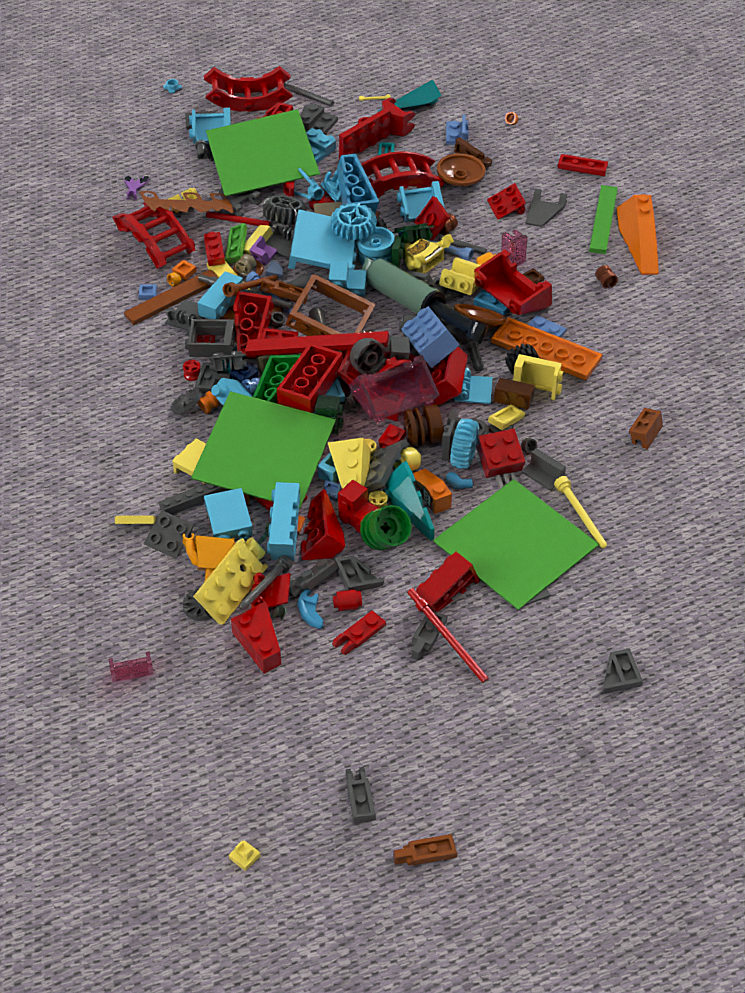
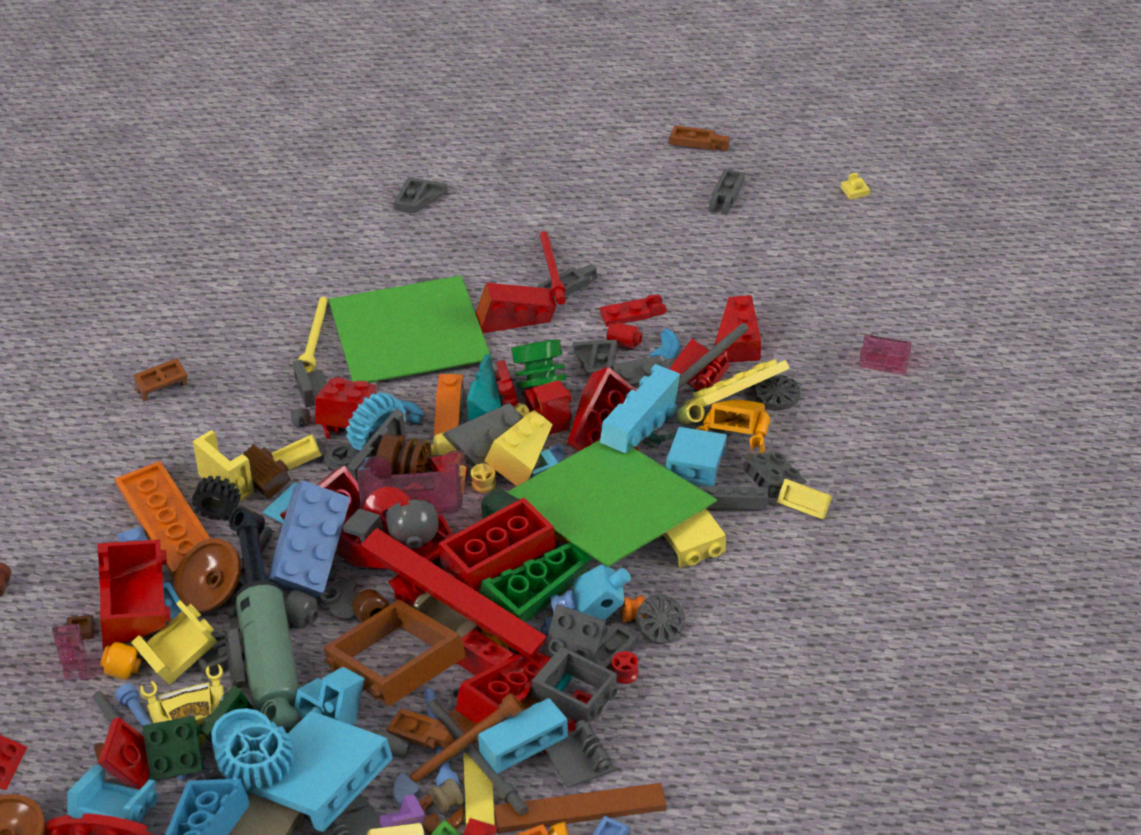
camera: 150 degrees left, 5 degrees down
(392, 497) = (505, 383): none -> red hinge

